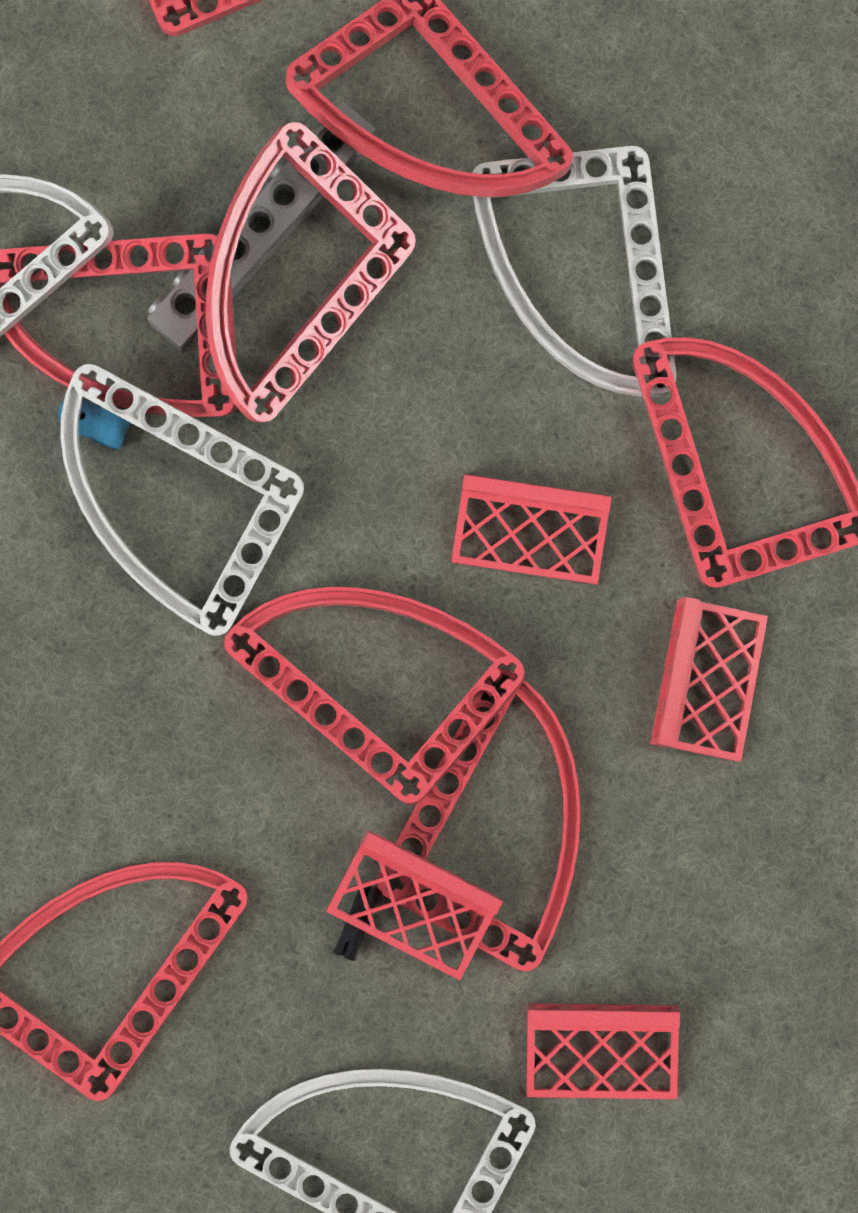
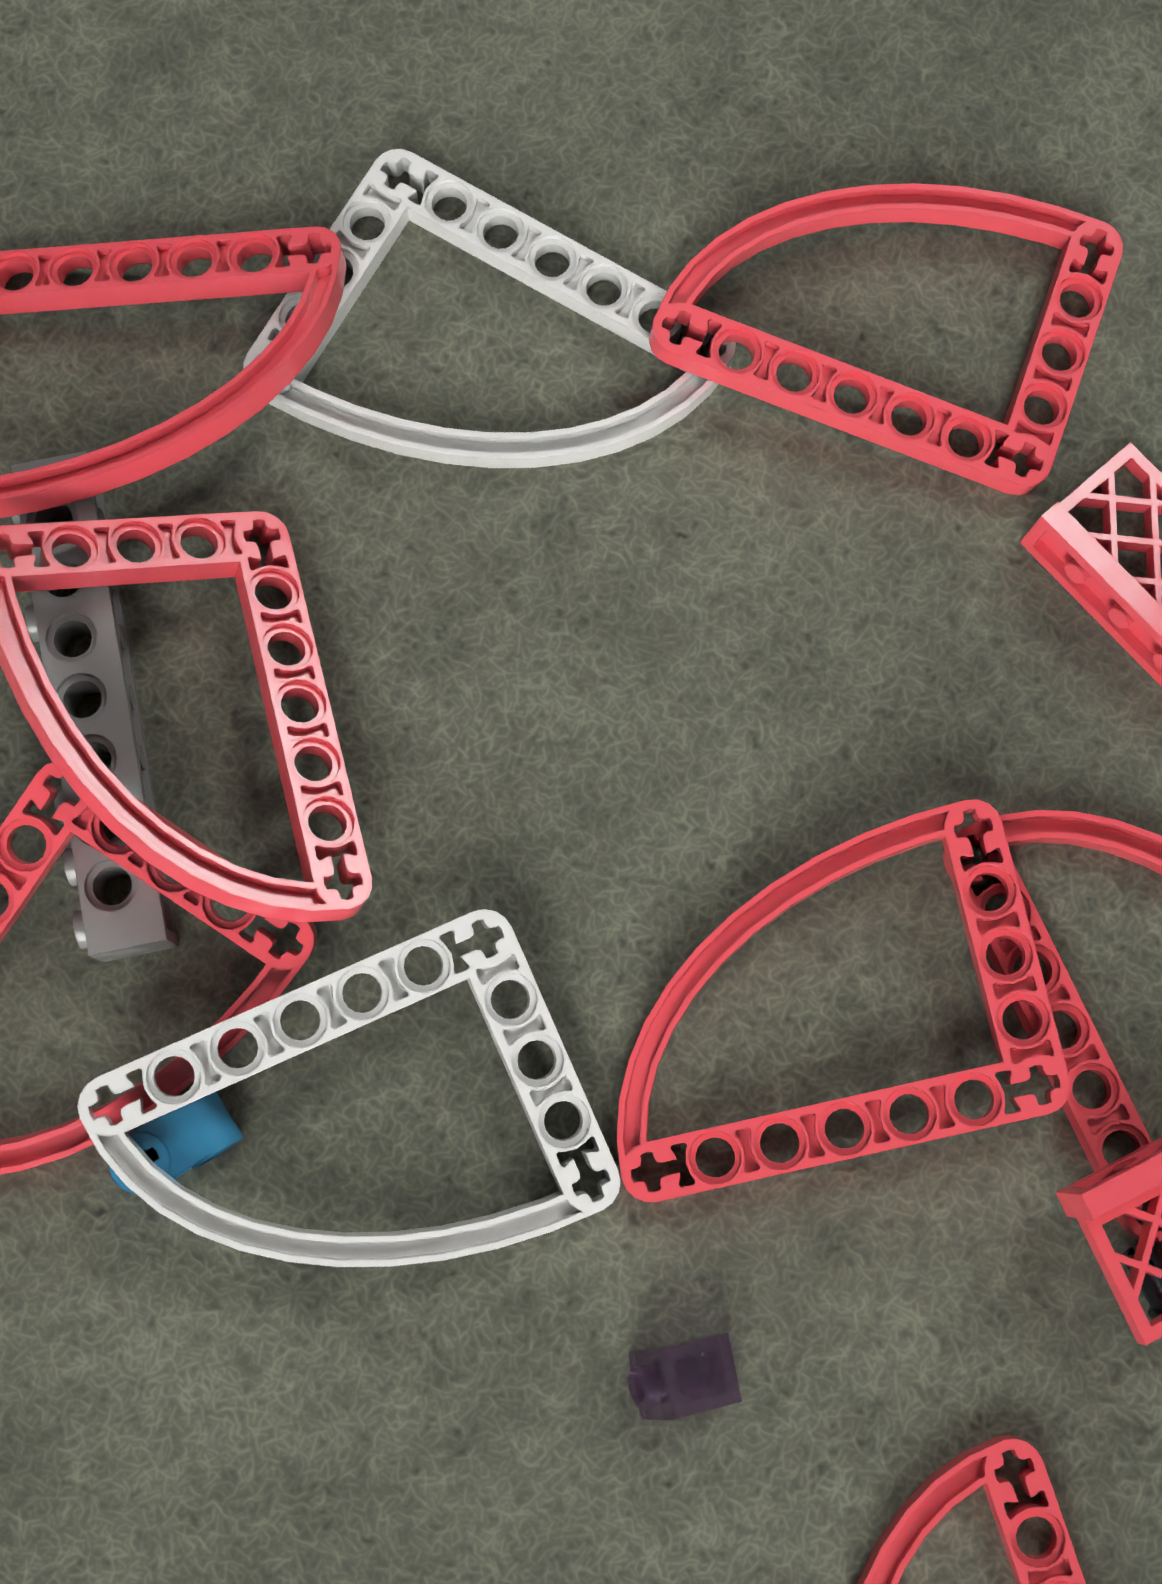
camera: 55 degrees left, 5 degrees down
(162, 723) = (683, 1378): none -> clear purple bracket
(538, 497) = (748, 616): coral fence -> none

